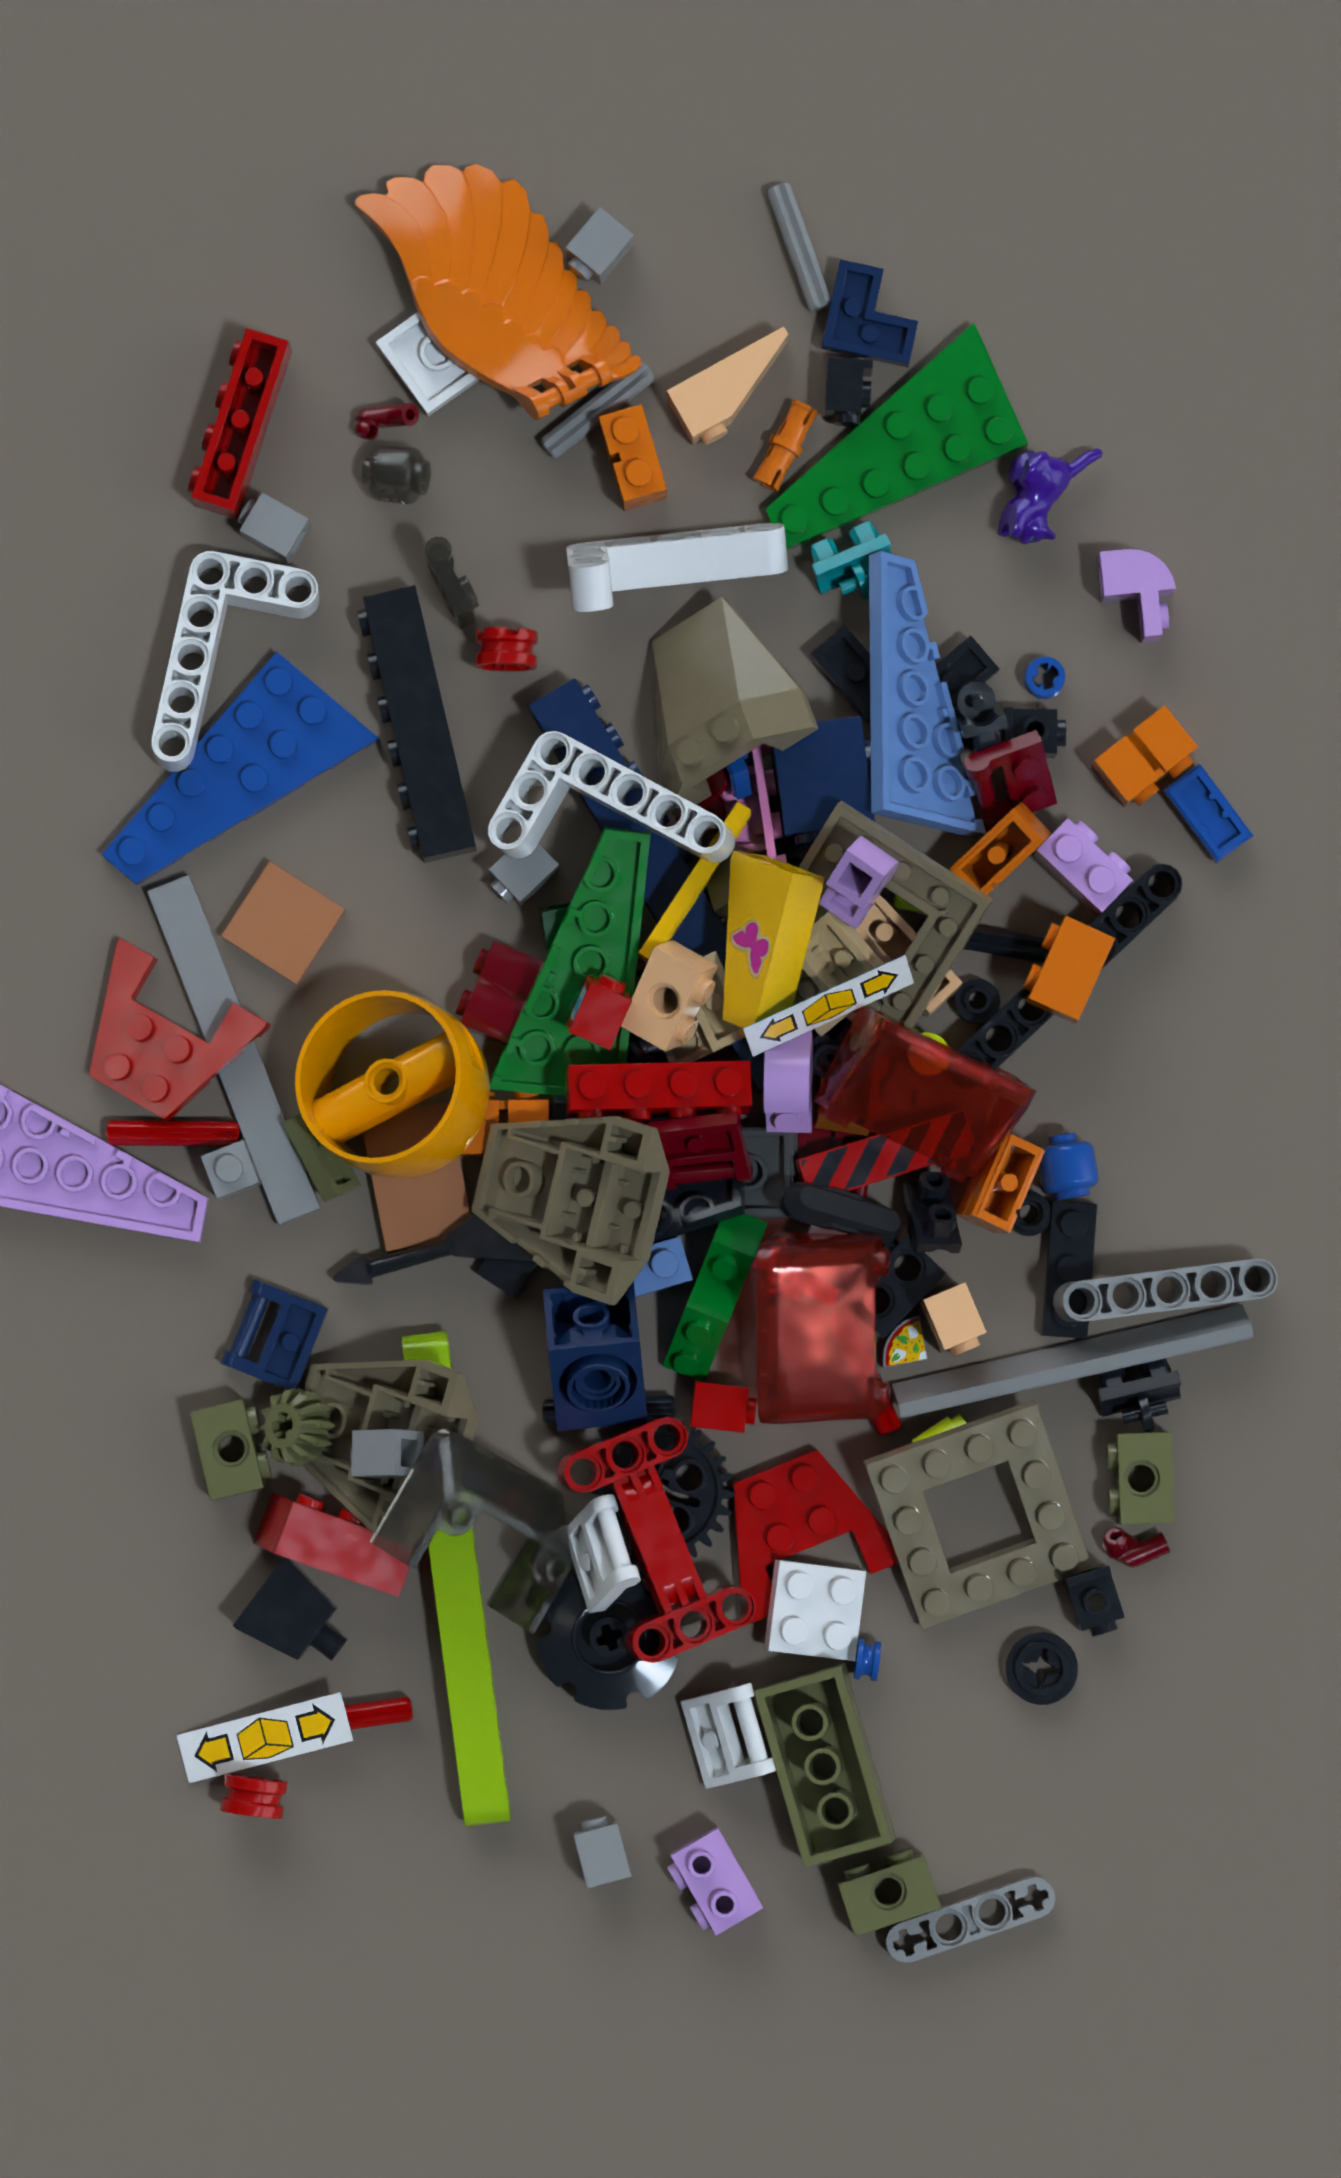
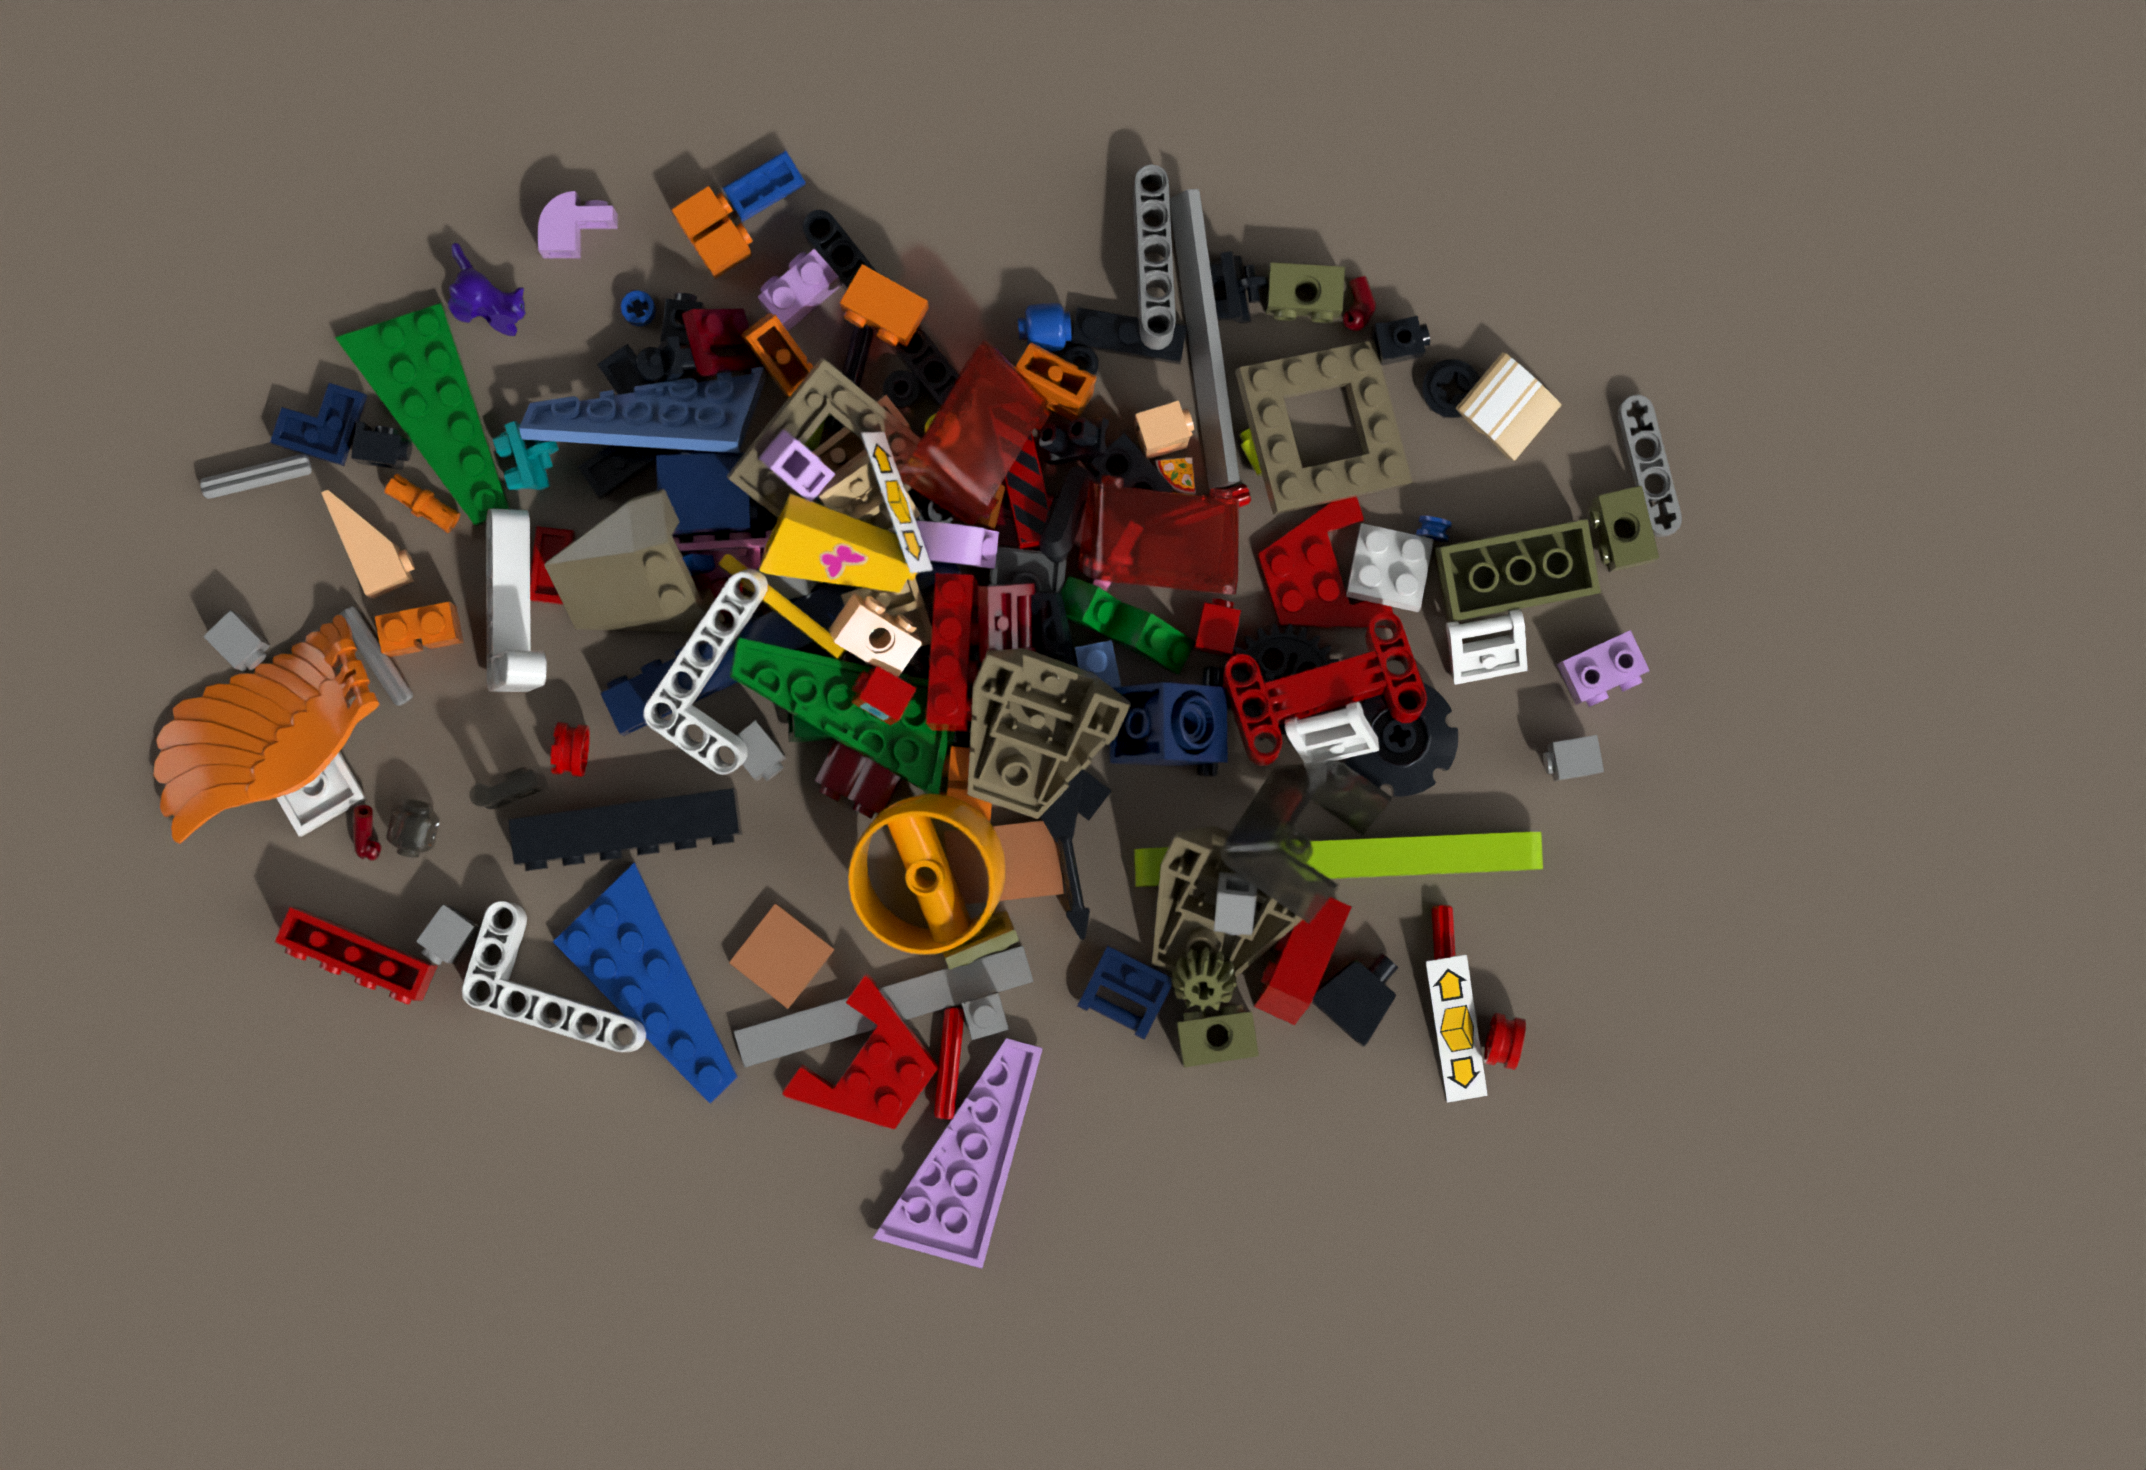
camera: 90 degrees left, 0 degrees up
(748, 598) = (546, 545): none -> red tile
(1025, 1739) = (1508, 406): none -> tan slope

